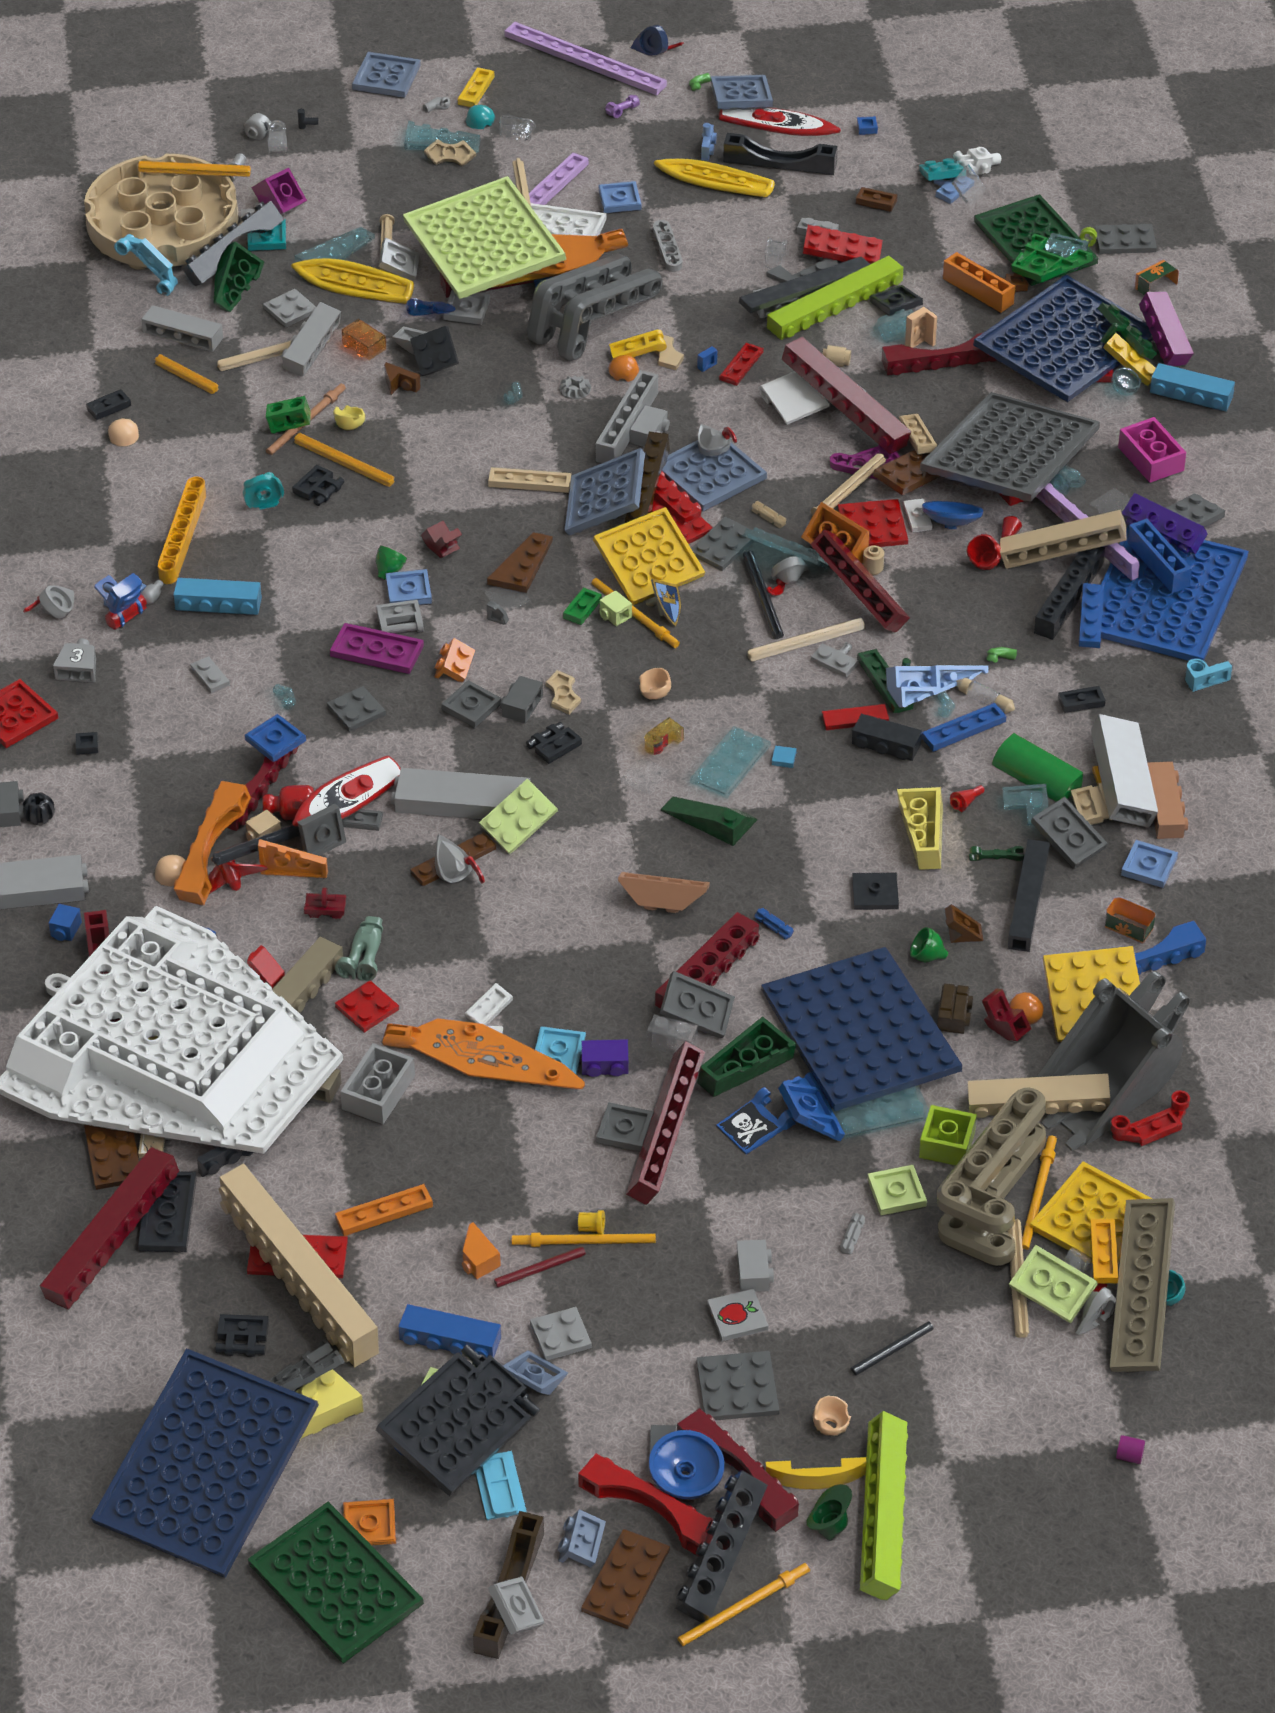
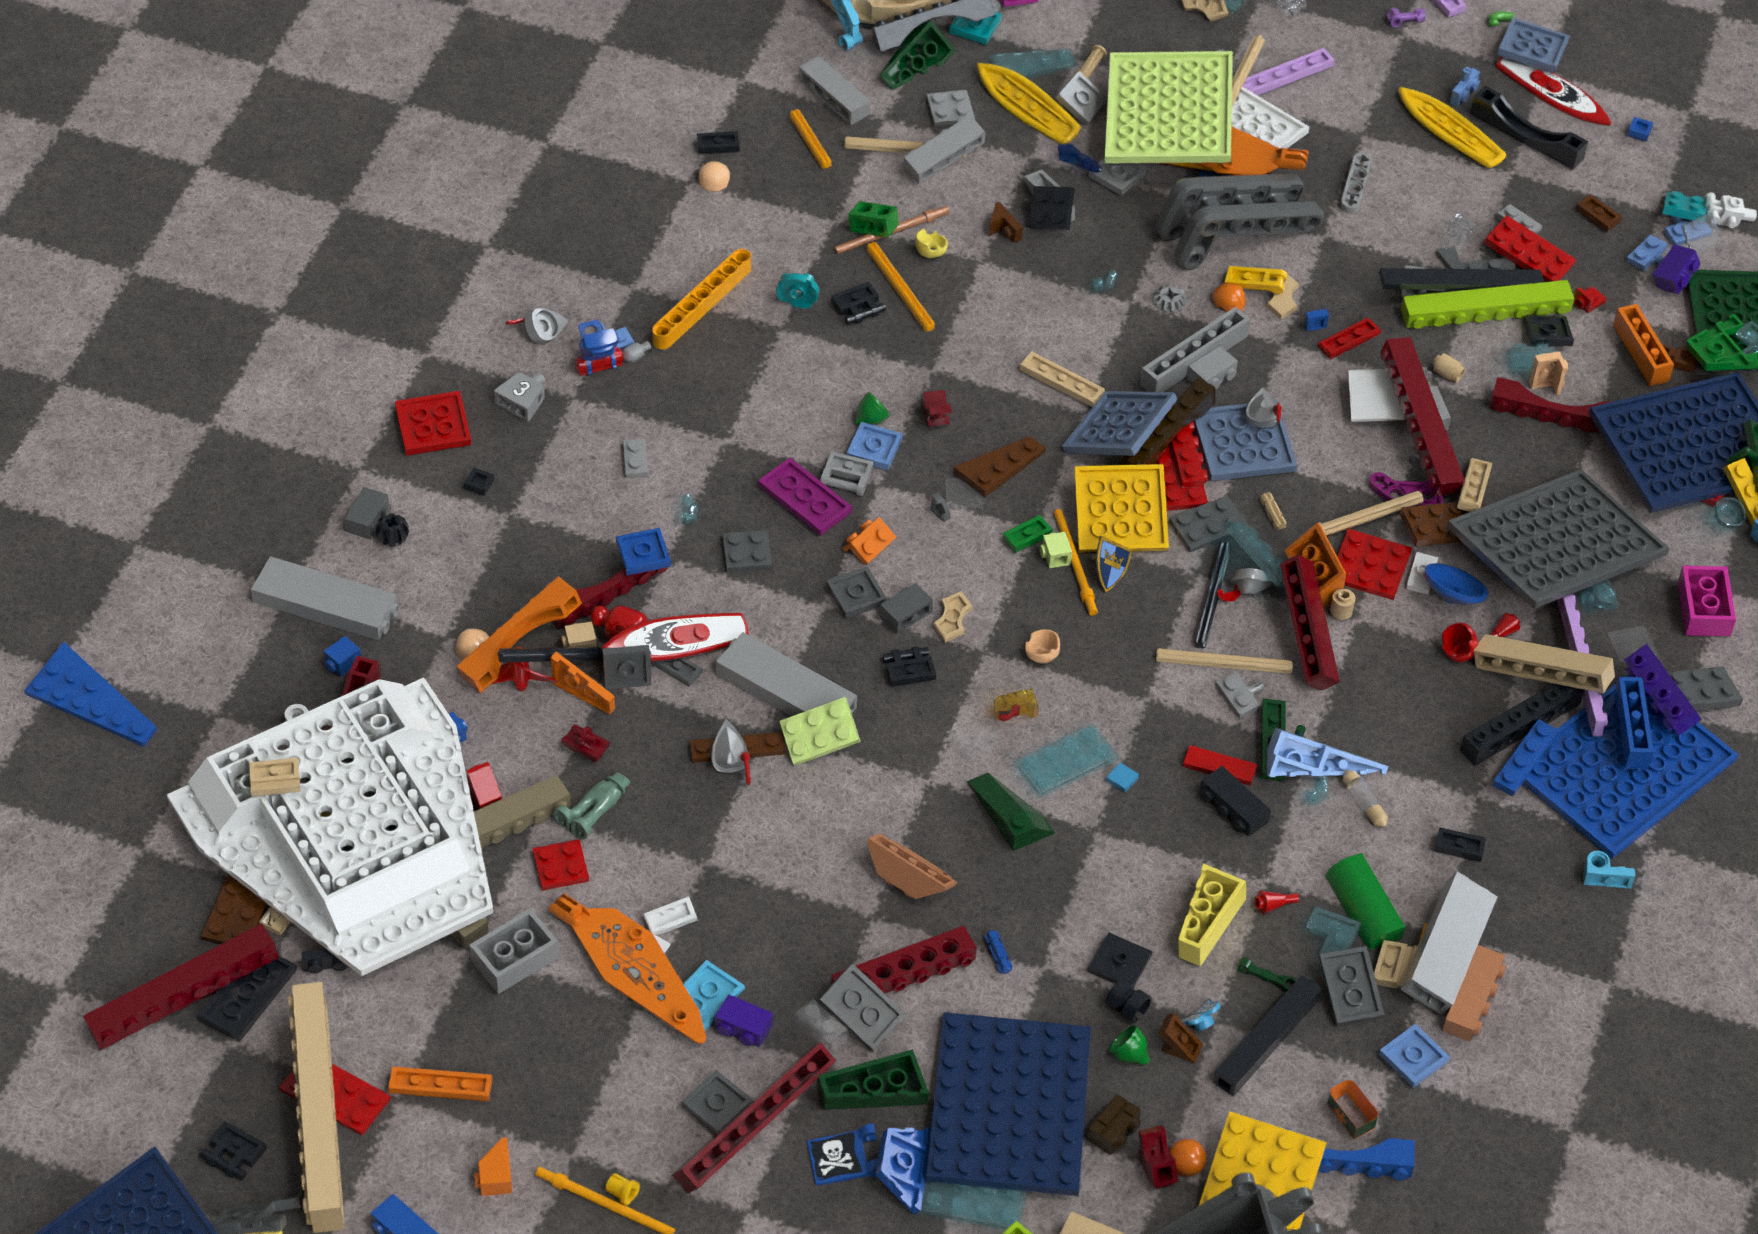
camera: 25 degrees right, 5 degrees up
(91, 1024) = (274, 777): none -> tan plate
(217, 596) = (690, 381): dark azure brick -> none
(363, 339) = (996, 168): clear orange brick -> none
(539, 1267) = (546, 1211): dark red bar -> none
(619, 197) = (1341, 113): medium blue plate -> none
(903, 914) = (1126, 998): none -> black wheel
(912, 265) = (1588, 299): none -> red bracket
(935, 215) = (1647, 253): none -> medium blue plate
(963, 727) = (1321, 823): blue plate -> none
(968, 217) = (1676, 269): none -> dark purple brick
(969, 903) = (1202, 1018): none -> dark azure animal
(1003, 652) = (1412, 757): bright green arm -> none

